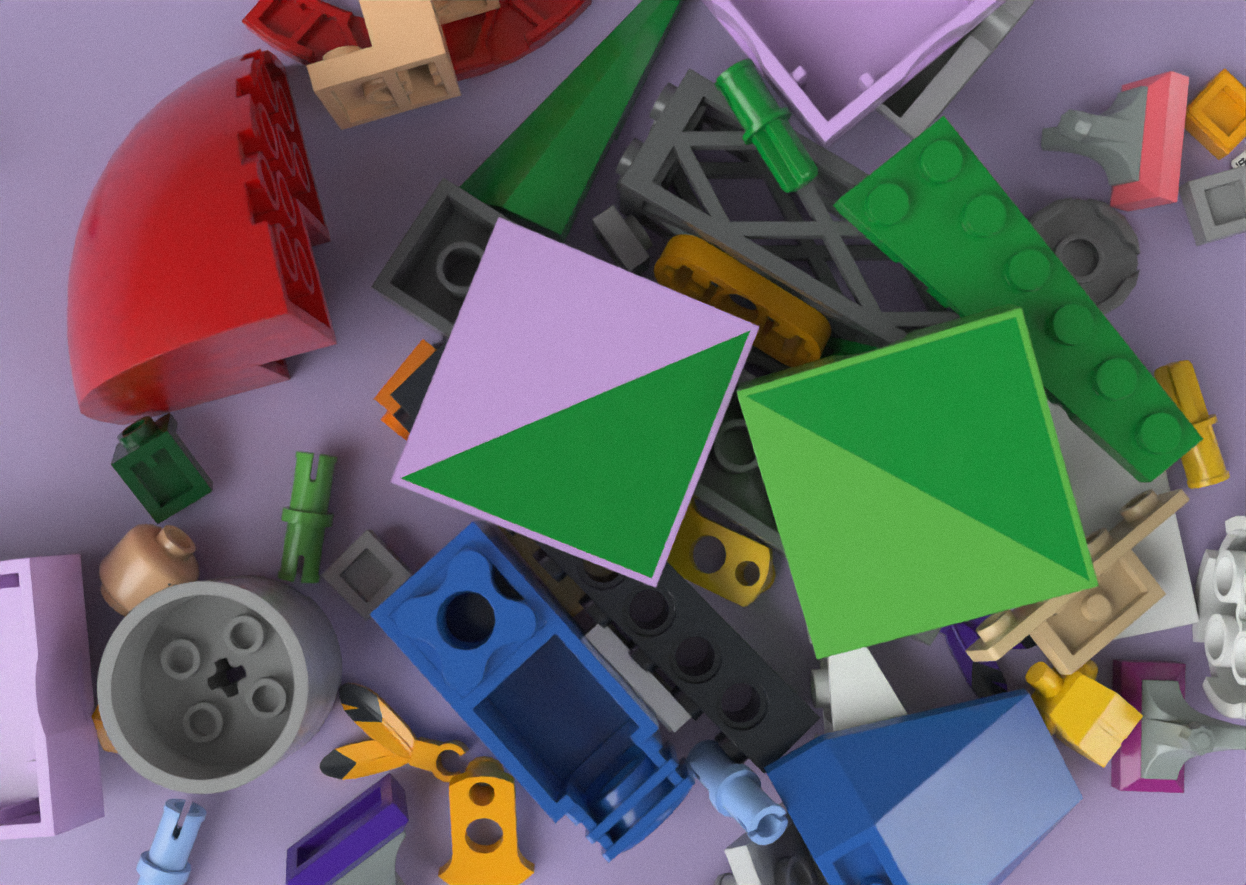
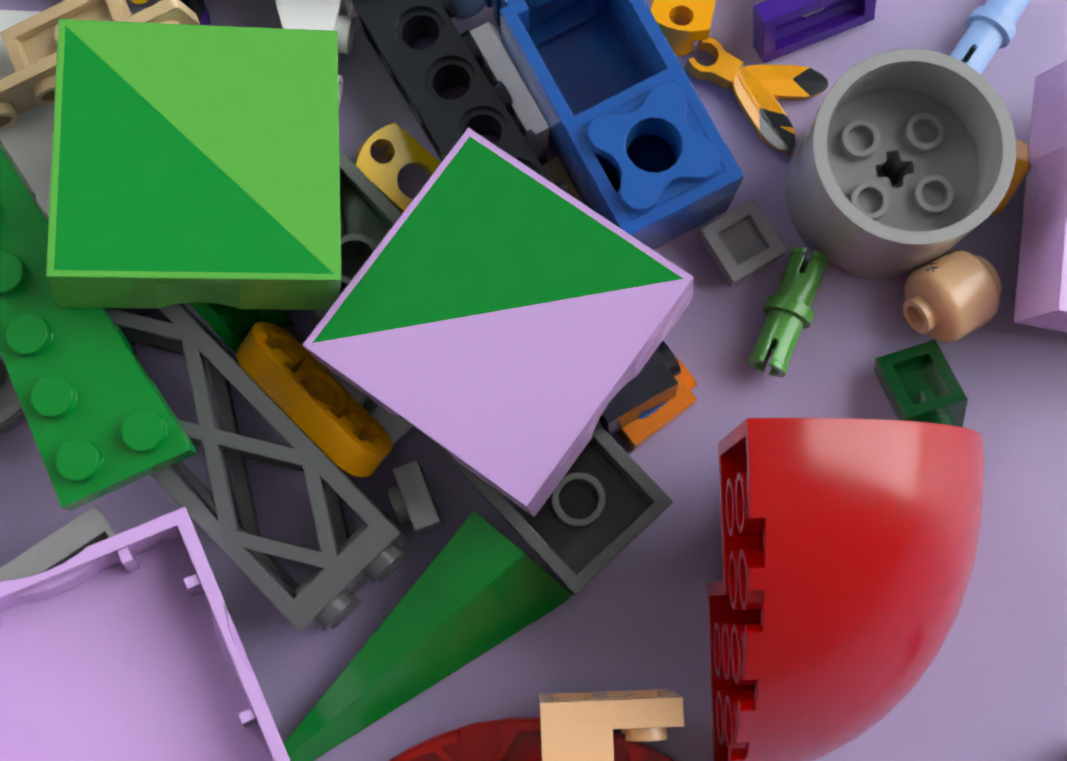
camera: 165 degrees left, 5 degrees down
(766, 126) = (238, 544): green axle -> none

